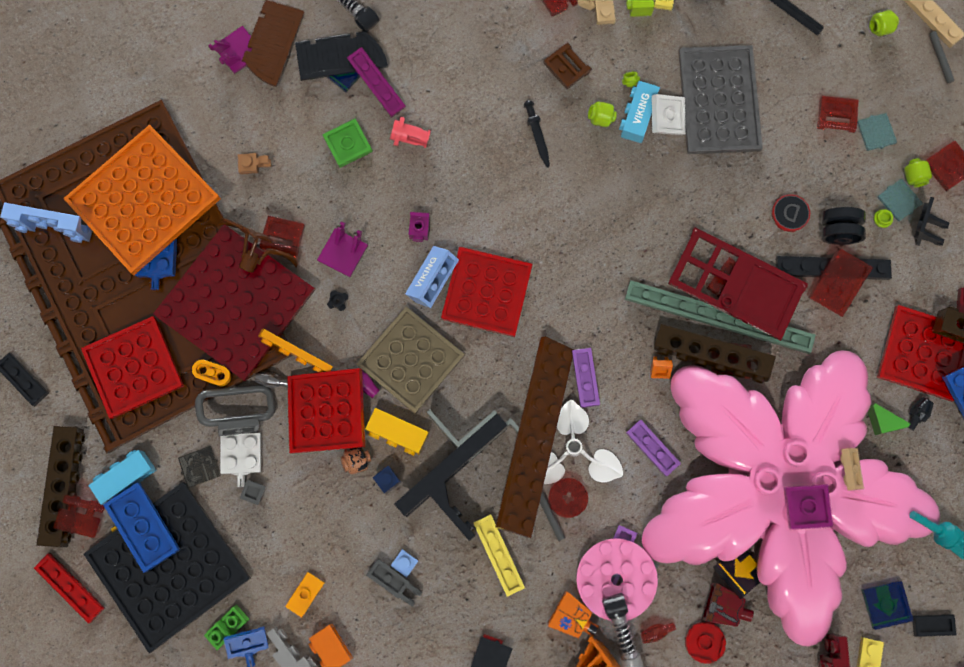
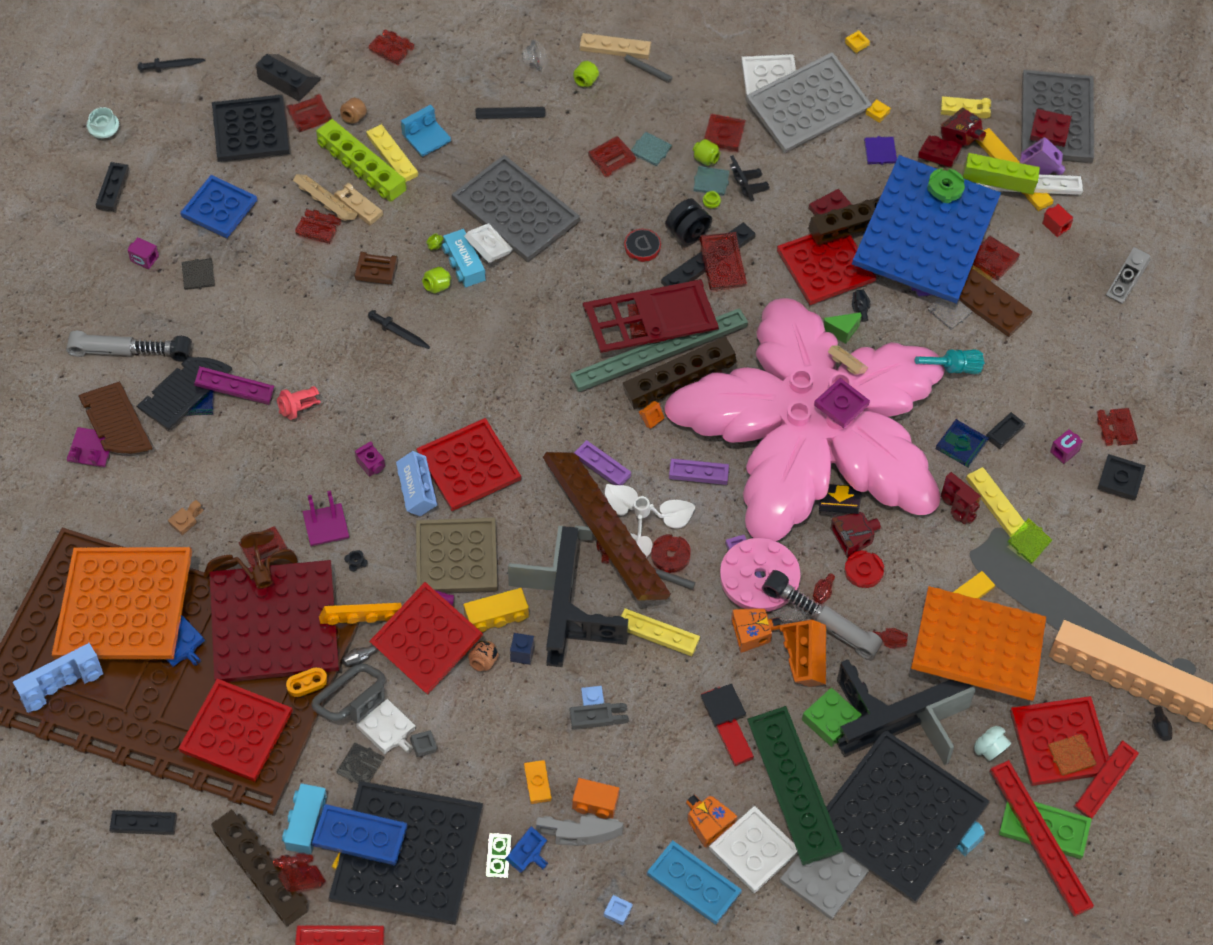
camera: 45 degrees left, 20 degrees down
(347, 143) = (252, 445): bright green plate -> none

